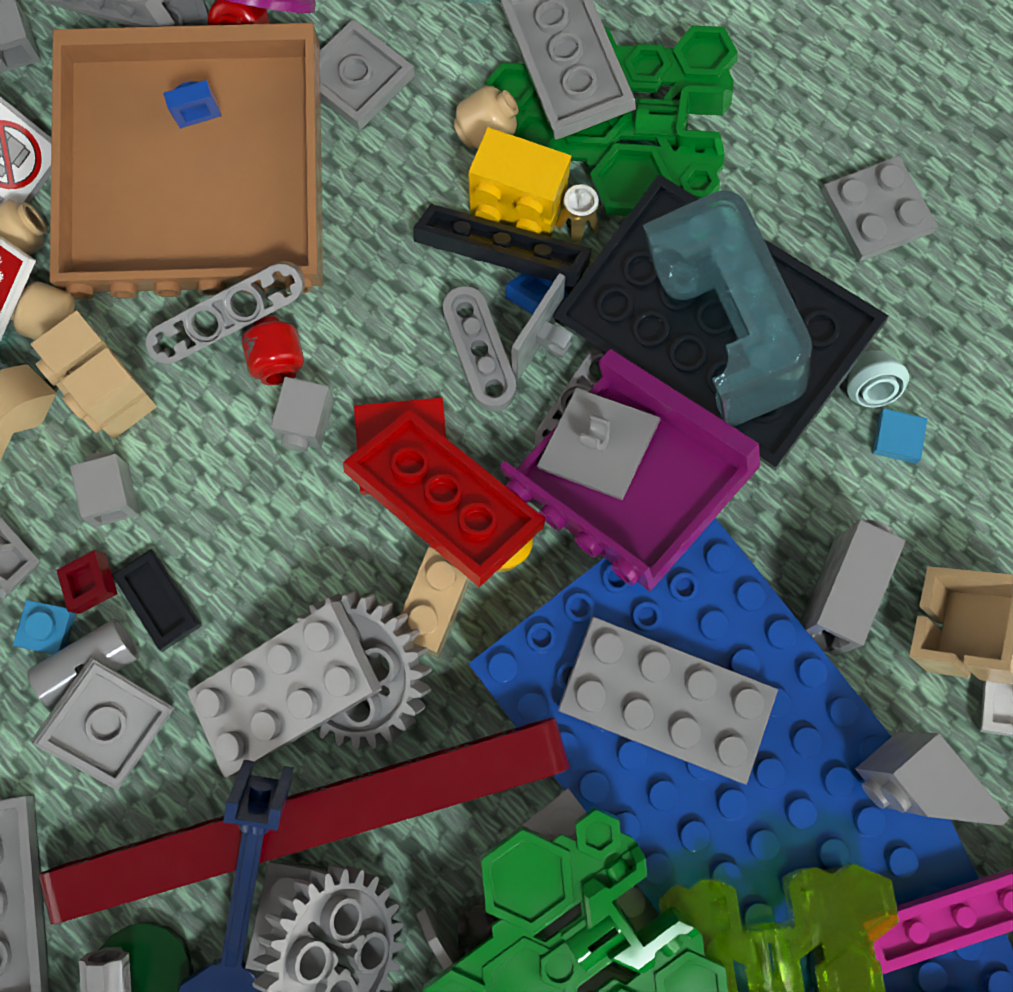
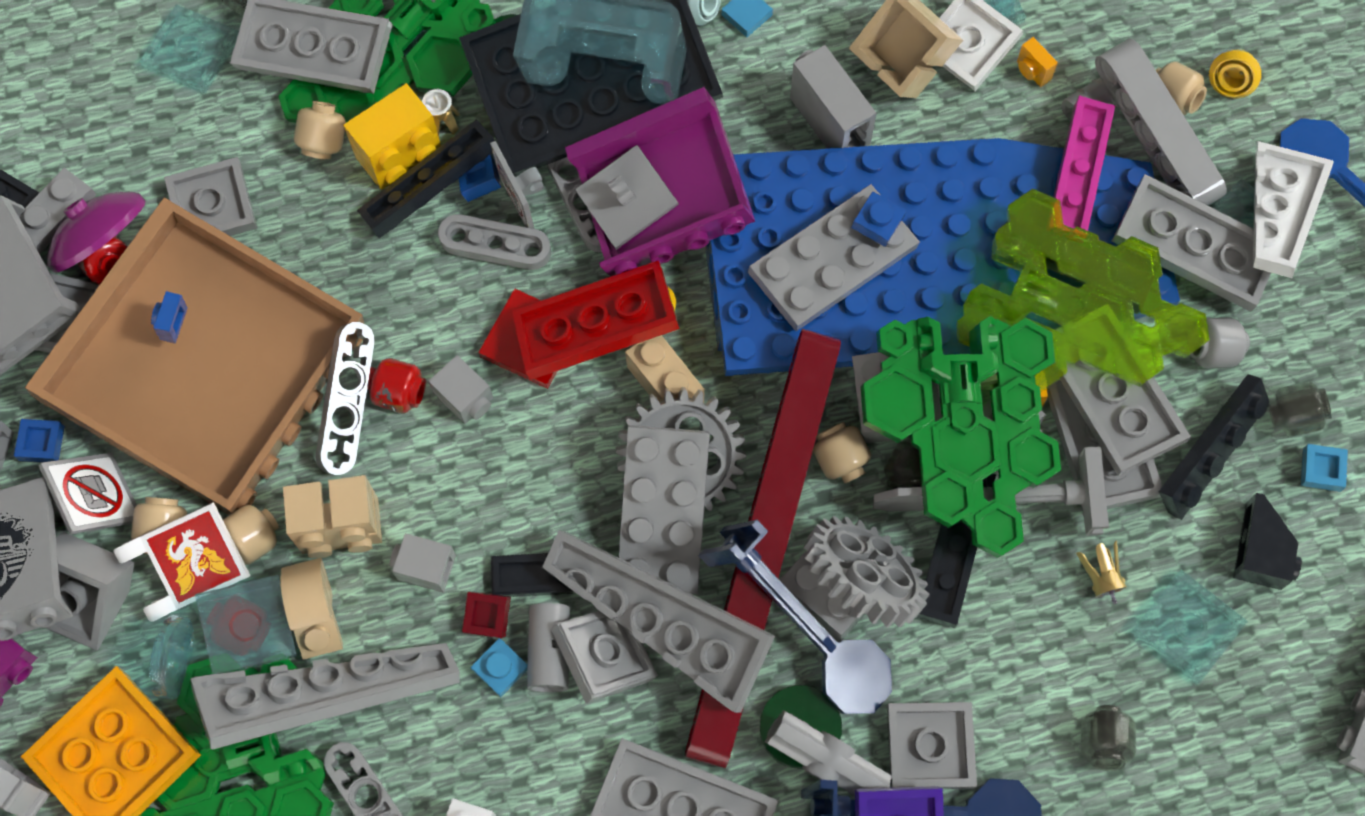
camera: 55 degrees left, 5 degrees down
(34, 83) = (39, 440): none -> blue plate
(153, 809) = (689, 633): none -> light grey wing
(462, 837) = (841, 452): none -> tan head
(737, 725) = (879, 219): none -> blue plate
(927, 779) = (984, 129): light grey slope -> none

